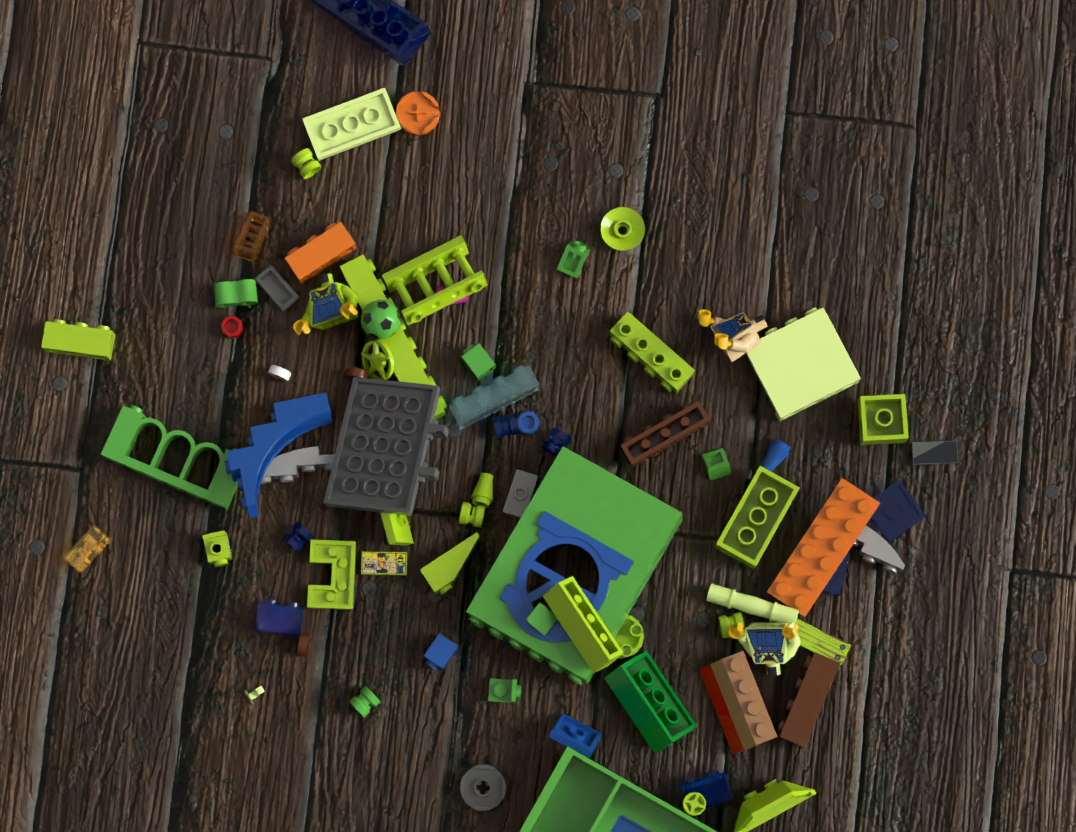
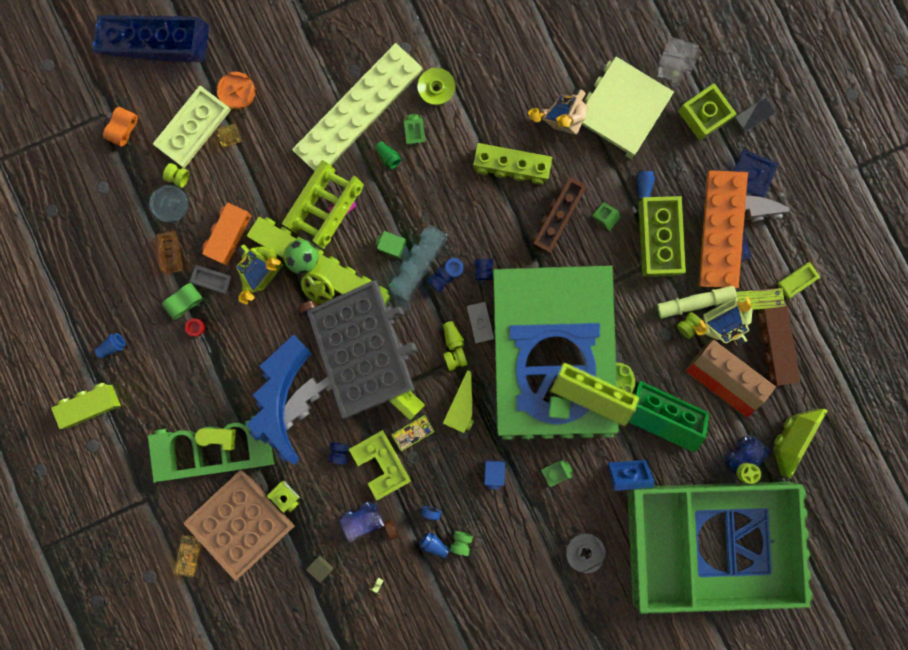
camera: 35 degrees left, 5 degrees up
(138, 294) = (110, 345): none -> blue cone
(156, 548) = (238, 524): none -> medium nougat plate
(182, 441) = (216, 436): none -> lime leg
(208, 641) = (320, 569): none -> olive slope
(279, 373) = (250, 340): white tile -> none
(280, 82) = (120, 126): none -> orange axle
(281, 187) = (169, 203): none -> clear light blue tile
(336, 687) = (433, 545): none -> blue cone
(353, 653) = (431, 513): none -> blue tile
(383, 153) = (228, 135): none -> clear yellow slope
(530, 204) = (358, 108): none -> yellowish green plate
(531, 272) = (388, 156): none -> green cone
(873, 648) = (798, 280): none -> lime tile
(884, 347) = (677, 58): none -> clear plate

